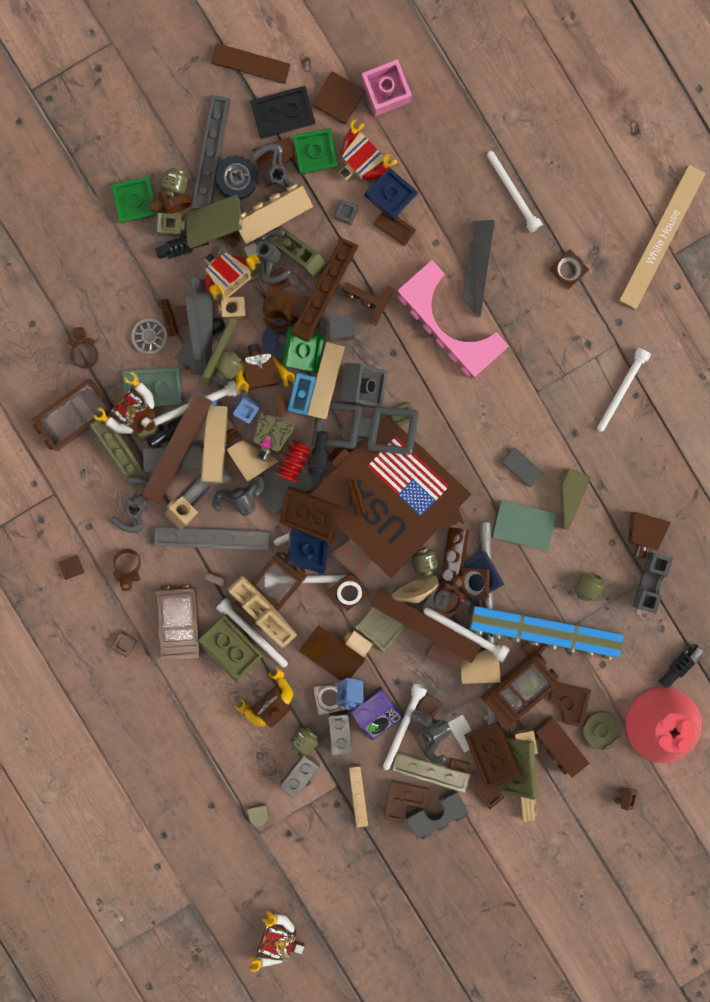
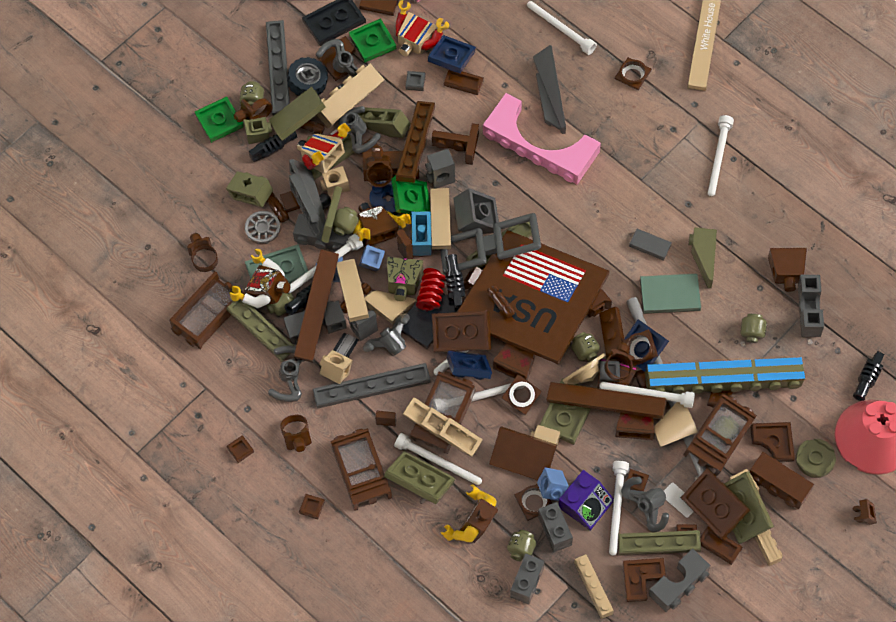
camera: 15 degrees left, 25 degrees down
(145, 294) = (249, 188): none -> olive brick

